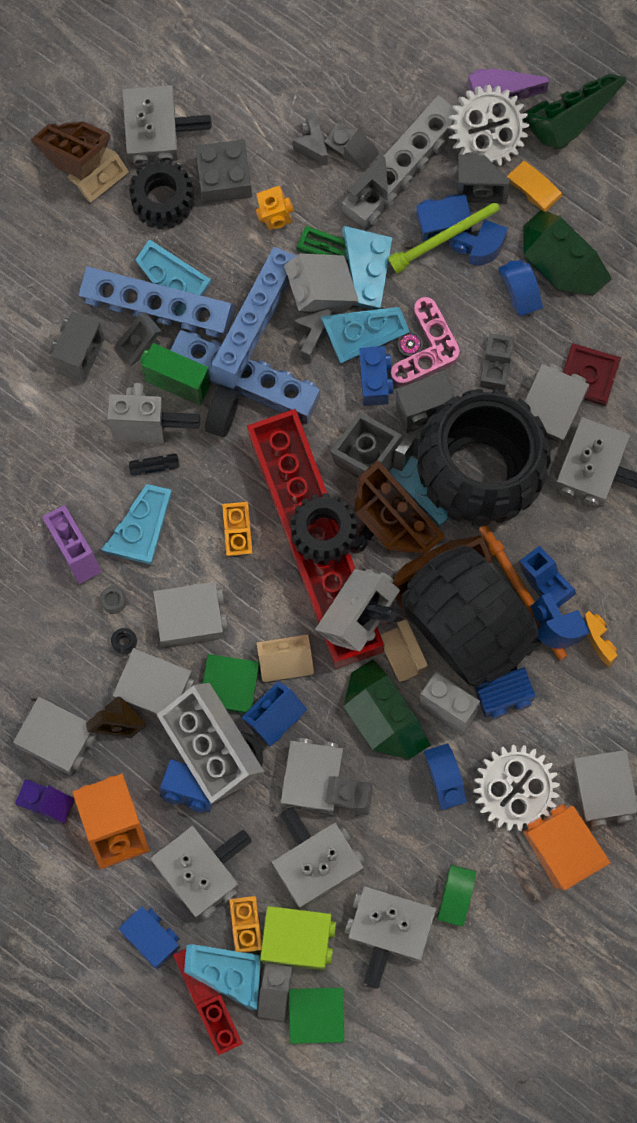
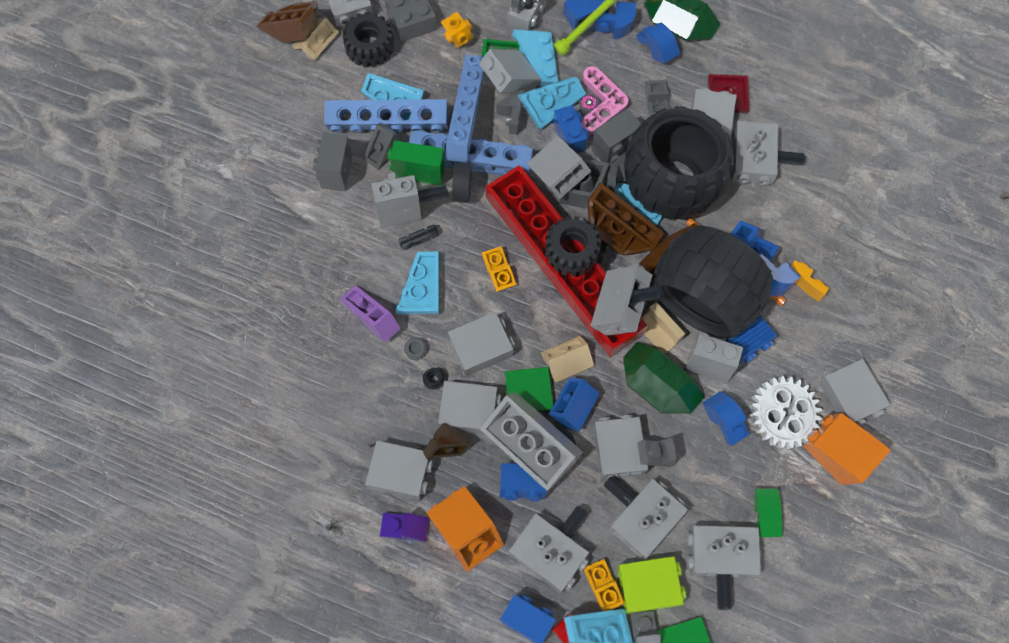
camera: 20 degrees left, 5 degrees down
(339, 425) = (558, 167): none -> light grey brick

